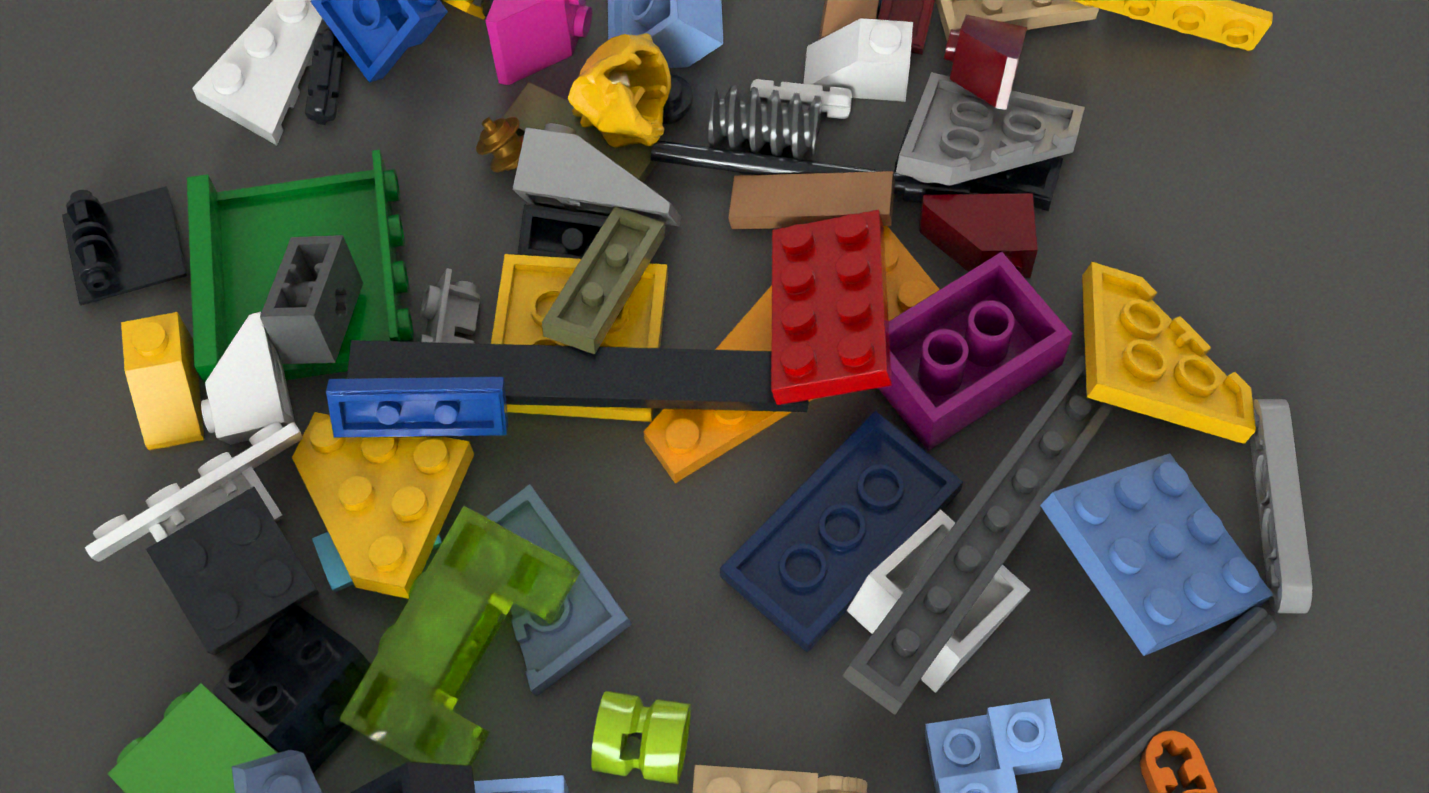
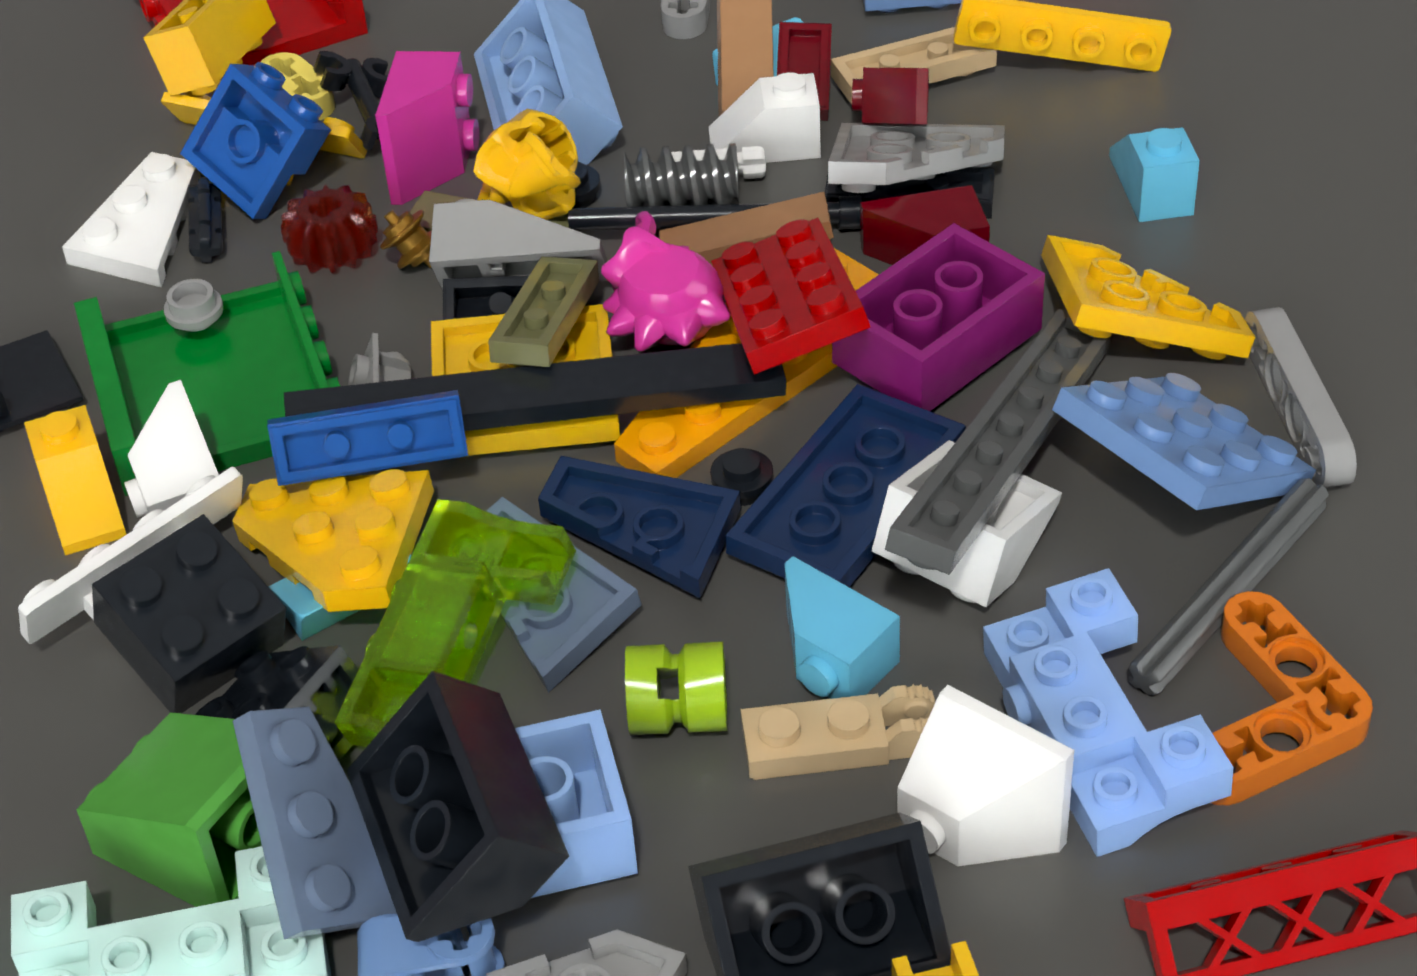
camera: 10 degrees left, 20 degrees down
(294, 195) = (192, 305): none -> light grey plate
(312, 300) = (232, 375): dark grey brick -> none
(433, 115) = (329, 228): none -> clear red gear
(654, 524) = (643, 517): none -> dark blue wing
(715, 273) = (661, 290): none -> dark pink head
(751, 488) = (743, 471): none -> black plate
(793, 704) = (836, 634): none -> medium azure slope
(1215, 195) = (1157, 173): none -> medium azure slope

